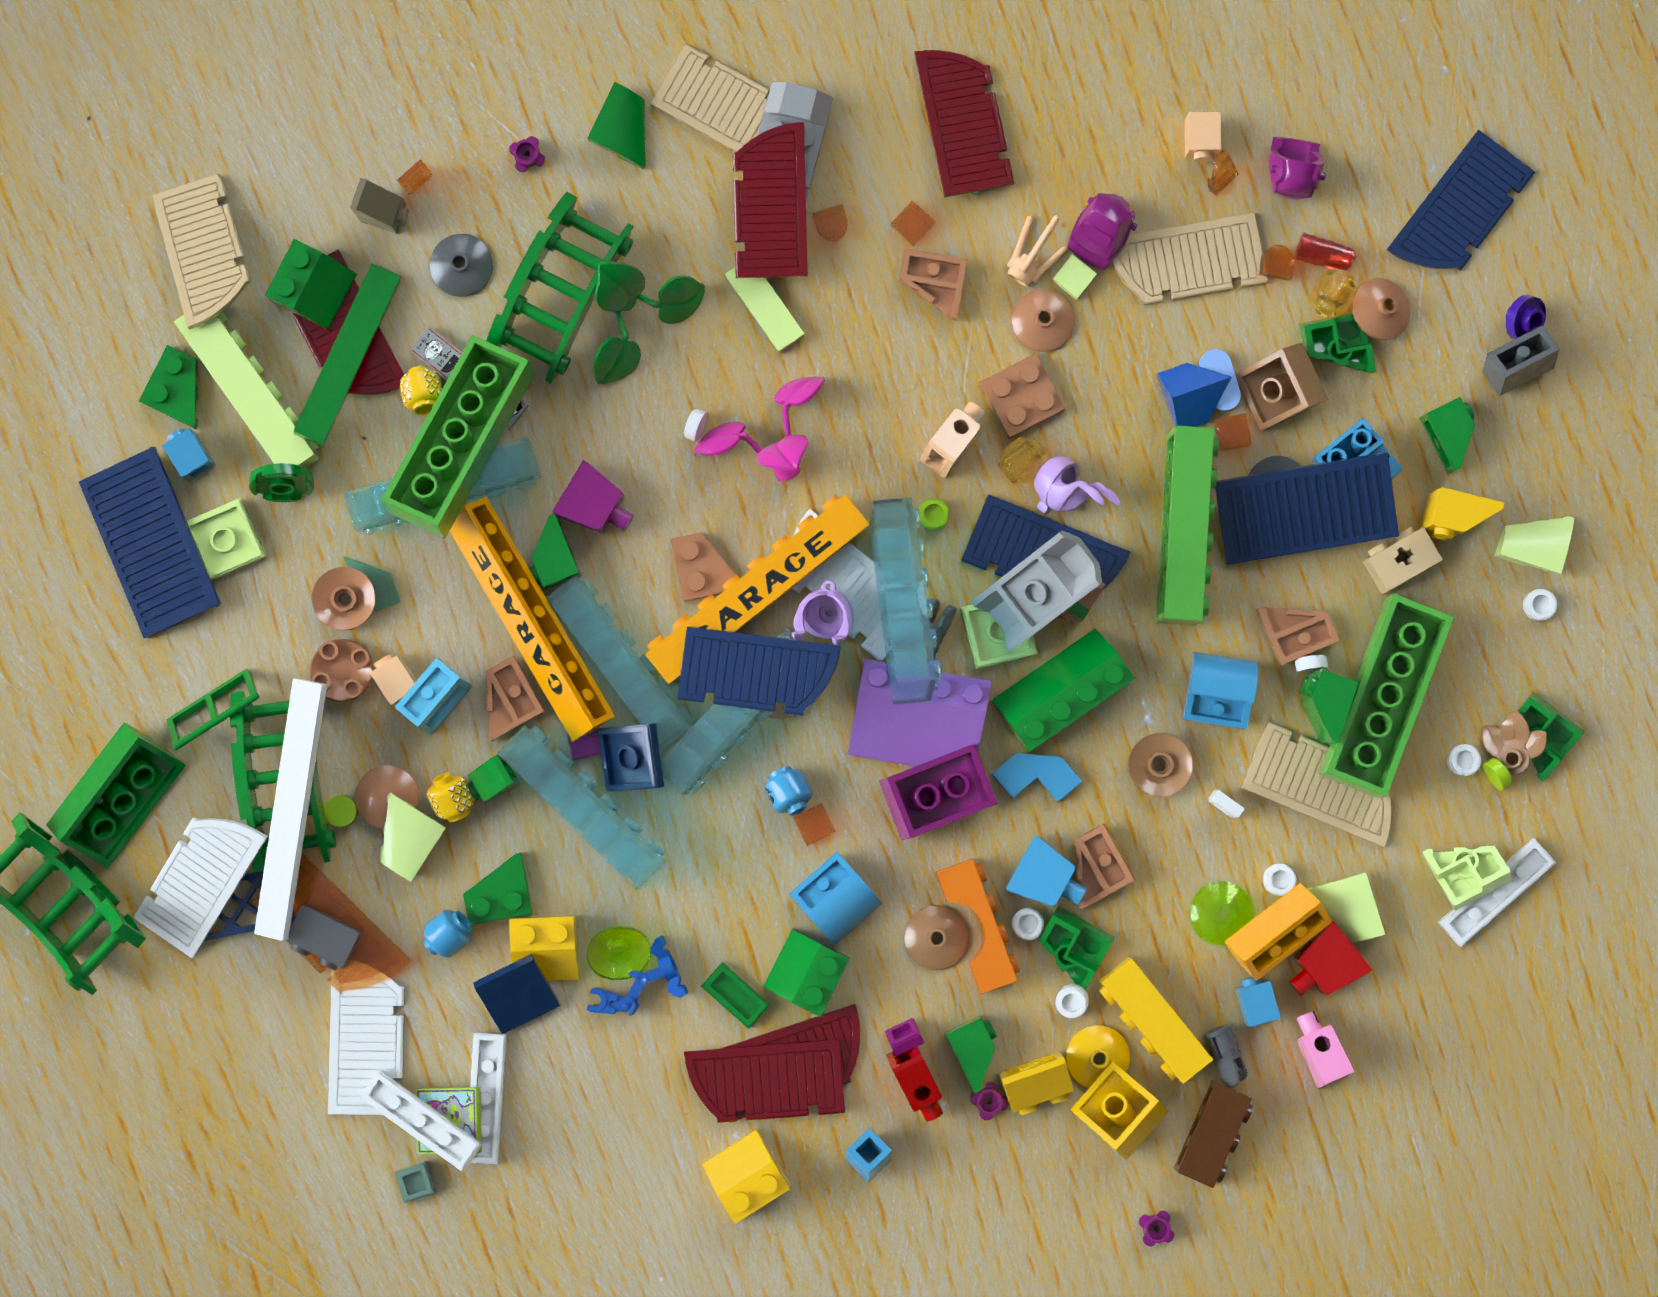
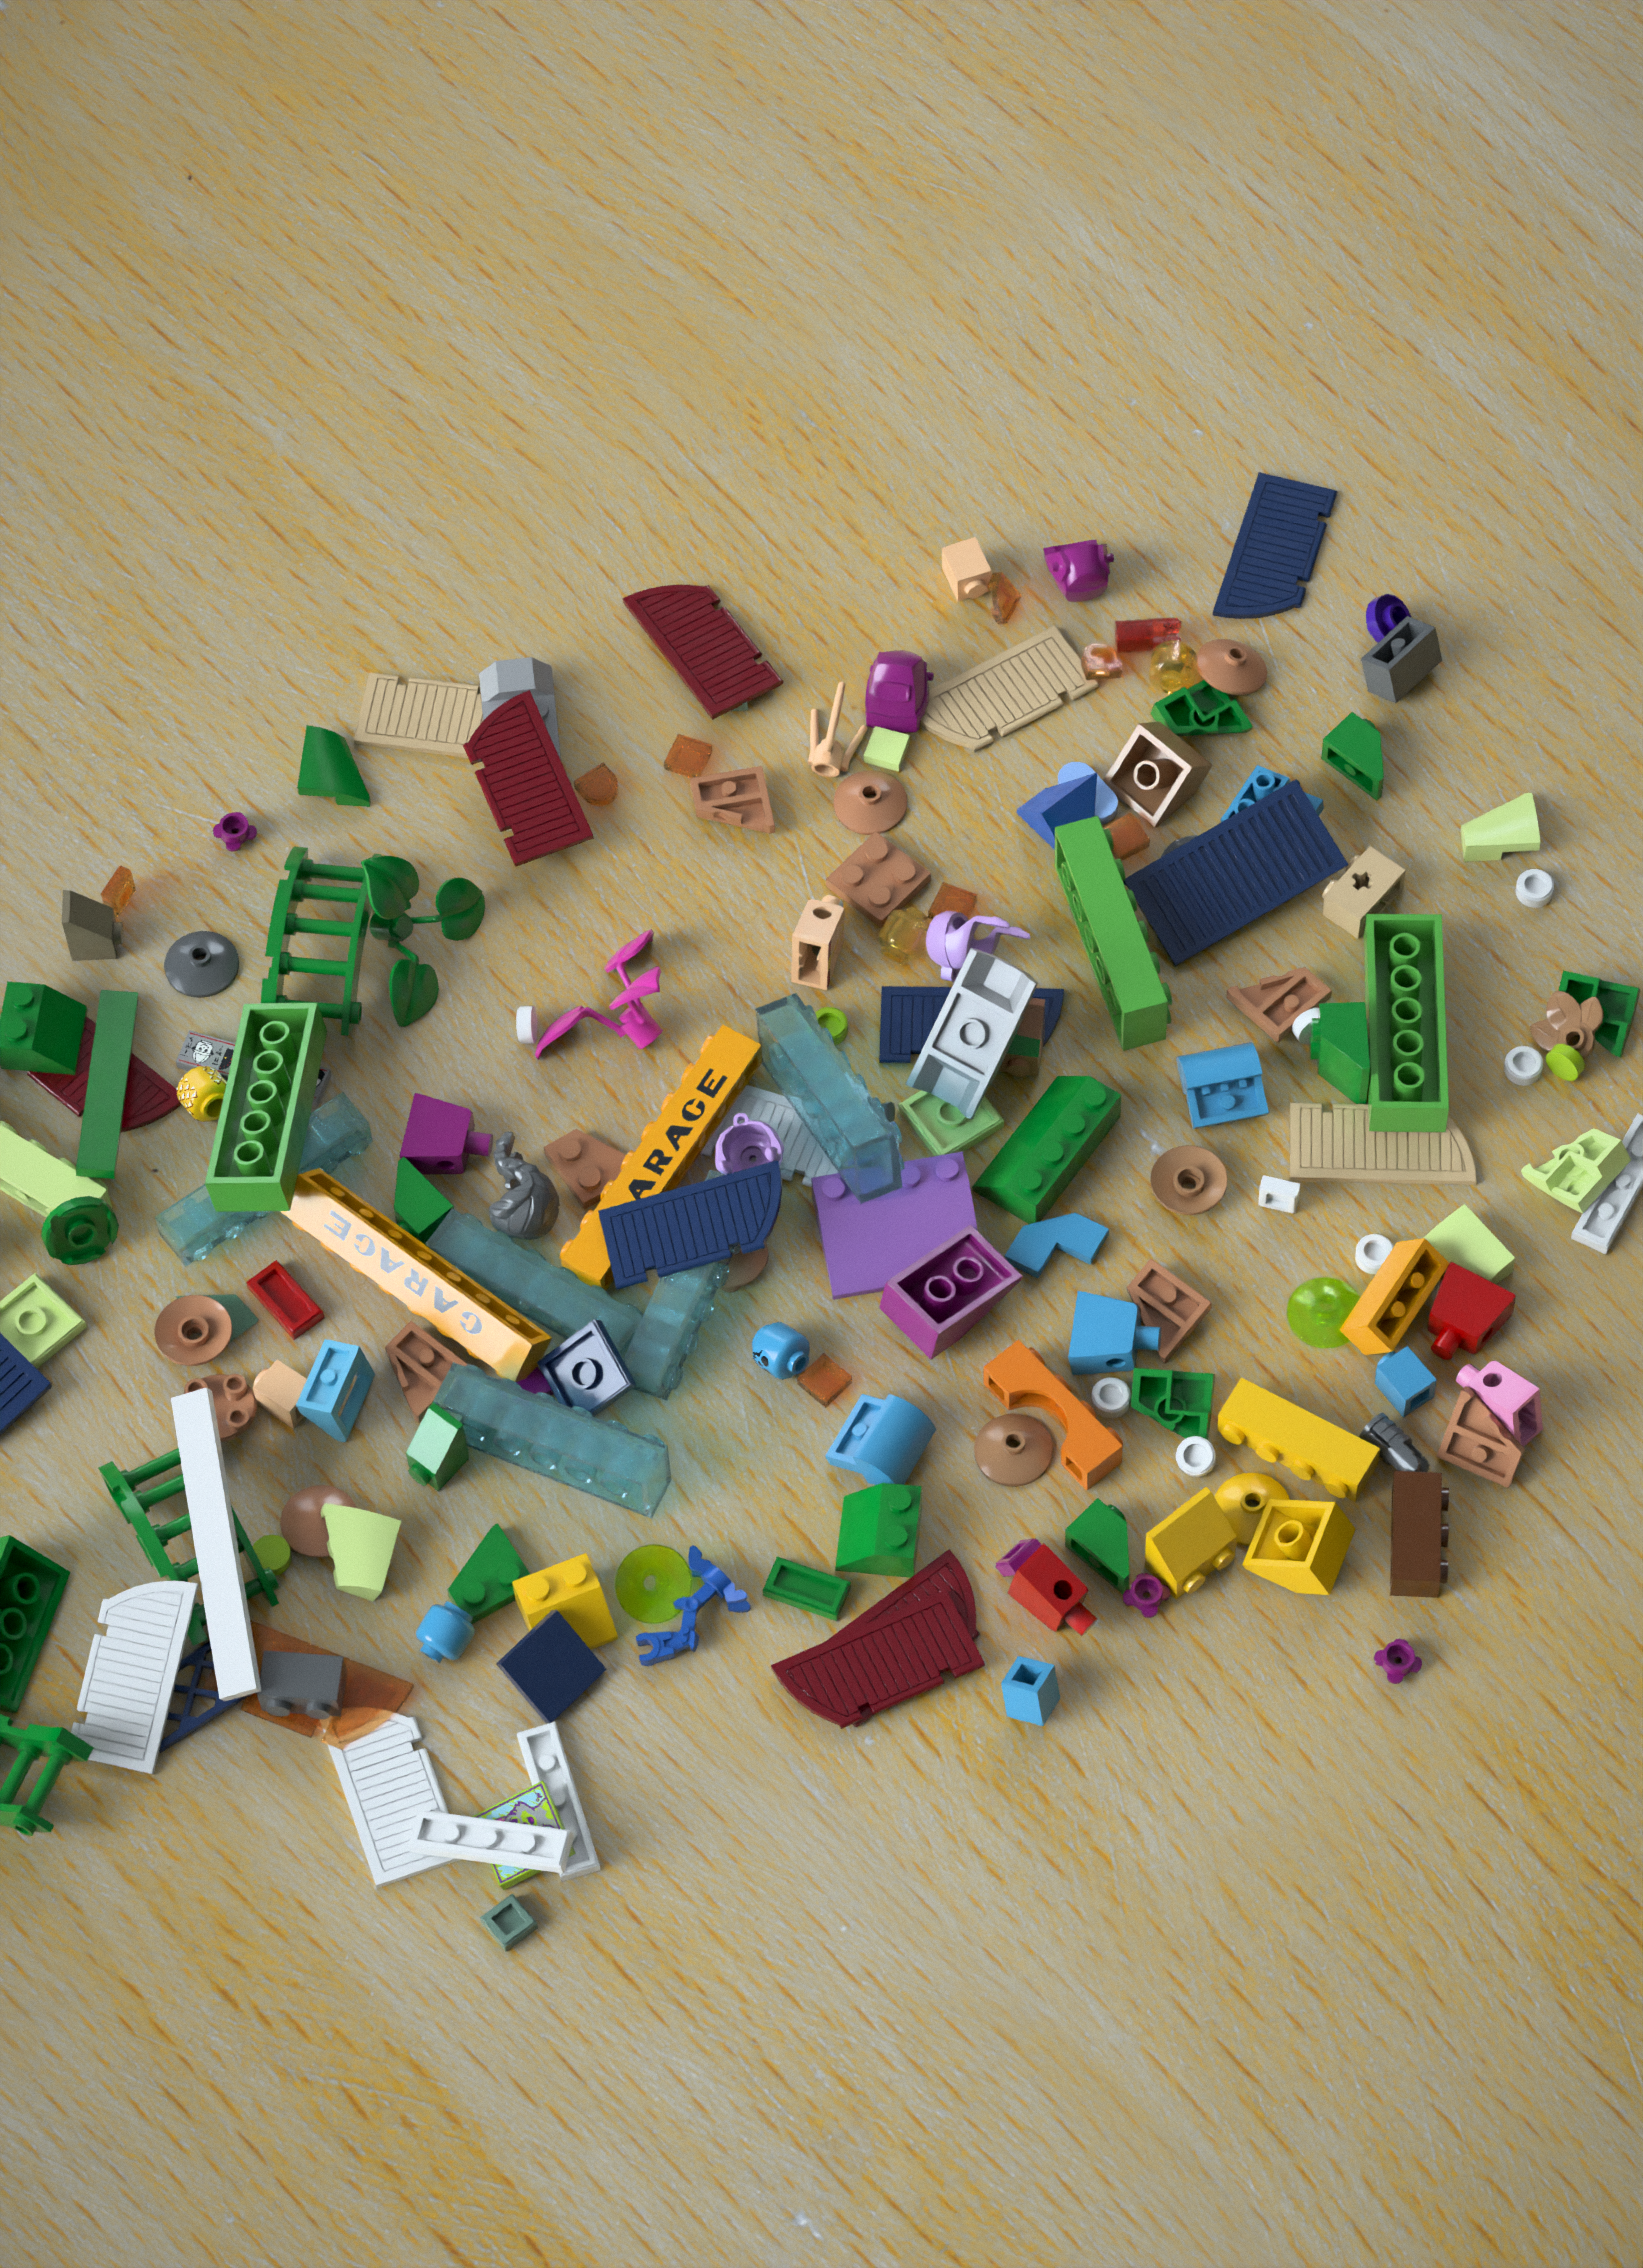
camera: 15 degrees left, 25 degrees down
(209, 700) = (78, 1489): green window -> none
(425, 594) = (285, 1300): none -> red tile
(450, 797) = (394, 1488): yellow head -> none
(646, 594) = (531, 1200): none -> dark grey hair
(746, 1176) = (900, 1772): yellow slope -> none
(767, 310) = (559, 890): yellowish green tile -> none
(1071, 442) = (952, 899): none -> clear orange tile
(1293, 1079) = (1480, 1441): none -> nougat wing
(1455, 512) = (1402, 818): yellow slope -> none

